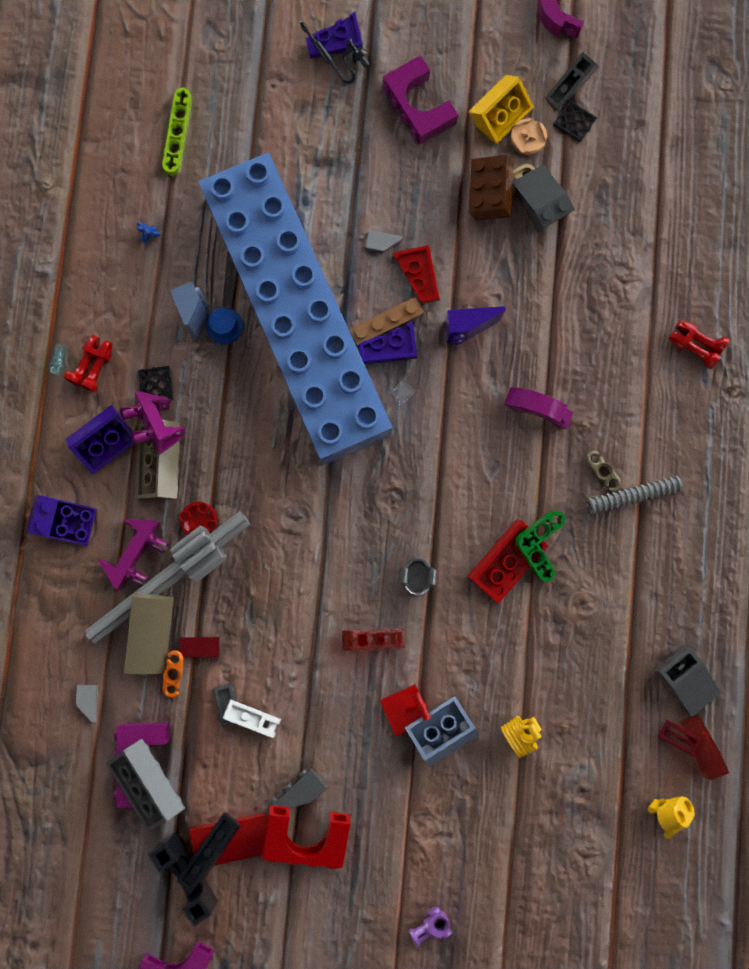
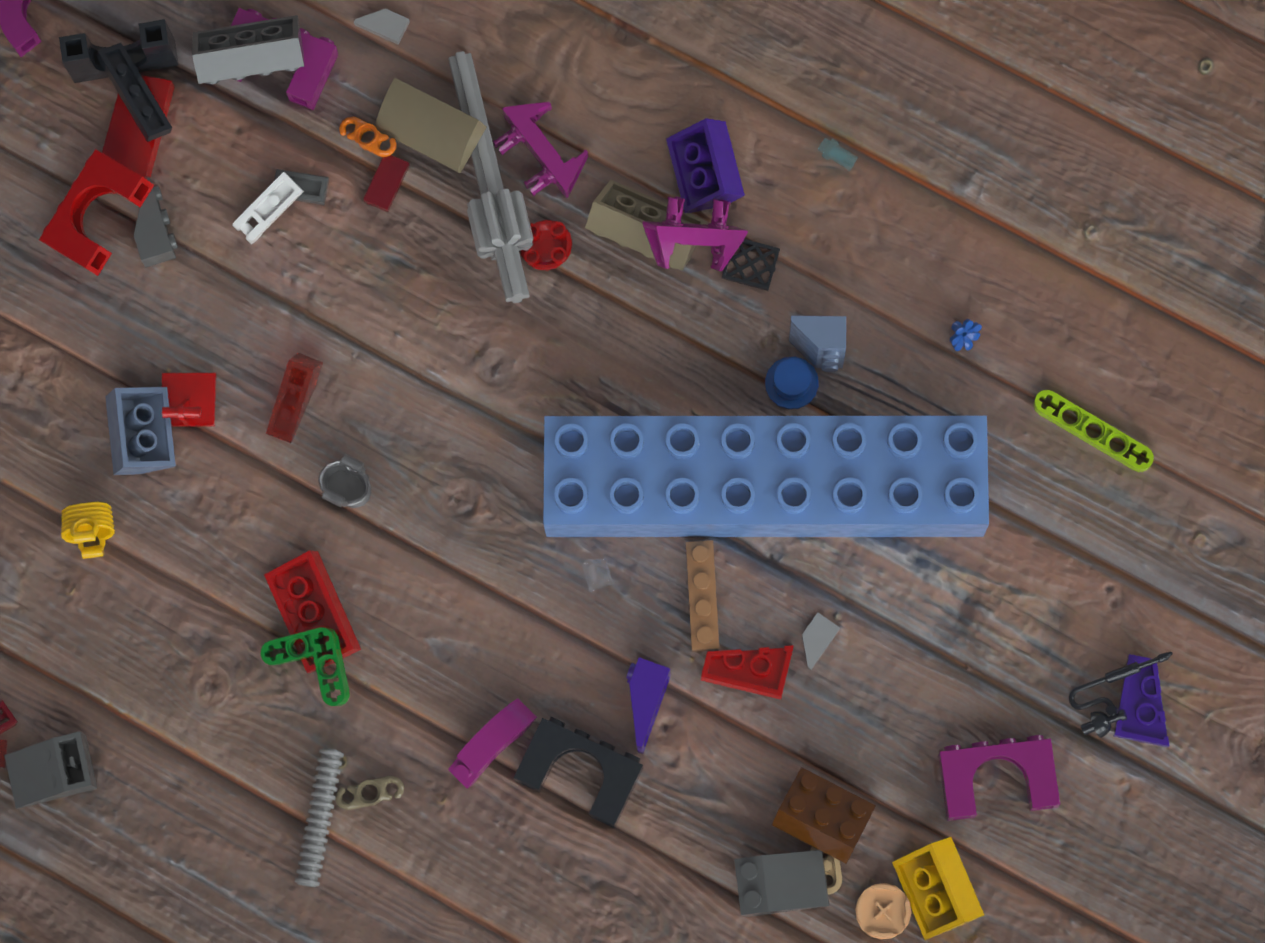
camera: 125 degrees right, 5 degrees down
(61, 520) = (623, 77): dark purple slope -> none
(90, 352) = (817, 213): red piece -> none
(393, 346) = (664, 587): dark purple wing -> none
(520, 371) = (554, 741): none -> black arch

